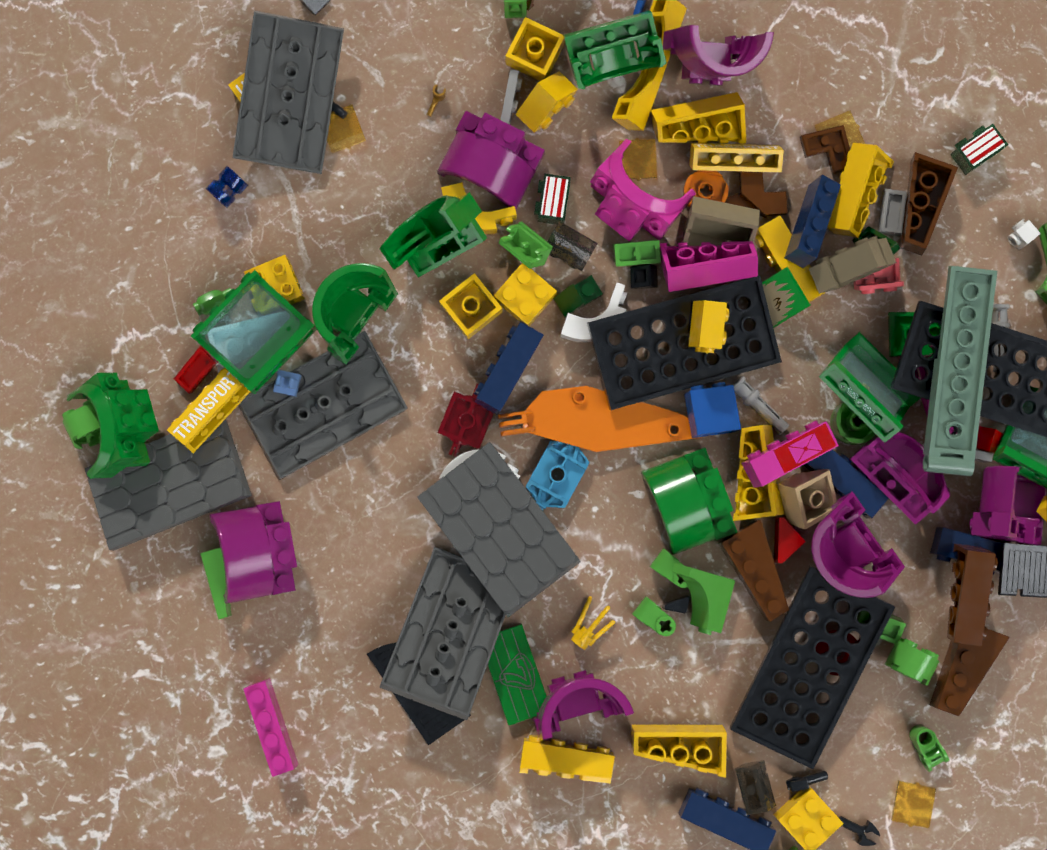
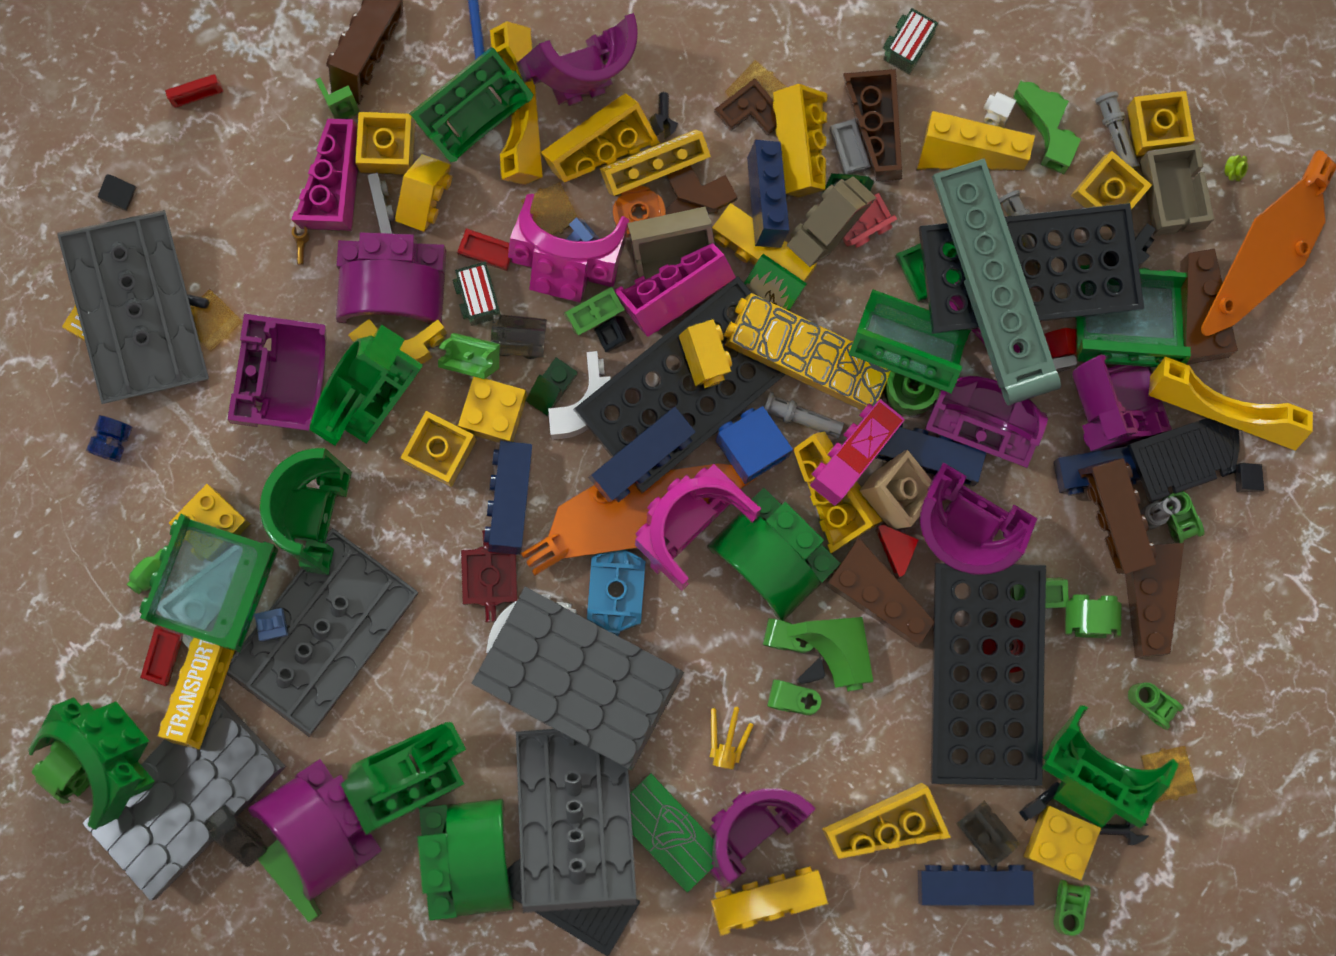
camera: 25 degrees left, 5 degrees down
(192, 531) = (235, 836): none -> clear smoke brick
(331, 533) = (389, 784): none -> green piece
(354, 625) = (464, 859): none -> green piece
(374, 199) = (279, 380): none -> magenta piece
(481, 61) = (332, 180): none -> dark pink wedge
(575, 167) = (485, 248): none -> red tile
(624, 381) = (641, 455): none -> dark blue brick
(636, 441) = (684, 515): none -> dark pink piece
(655, 187) = (581, 231): none -> medium blue tile
(756, 127) = (662, 120): none -> black bar
(784, 357) = (804, 352): none -> yellow brick
(858, 792) = (1098, 785): none -> green piece
(983, 248) = (959, 141): none -> yellow wedge
(1001, 600) = (1160, 511): none -> light grey pin
(1016, 620) = (1184, 518): none -> bright green piece

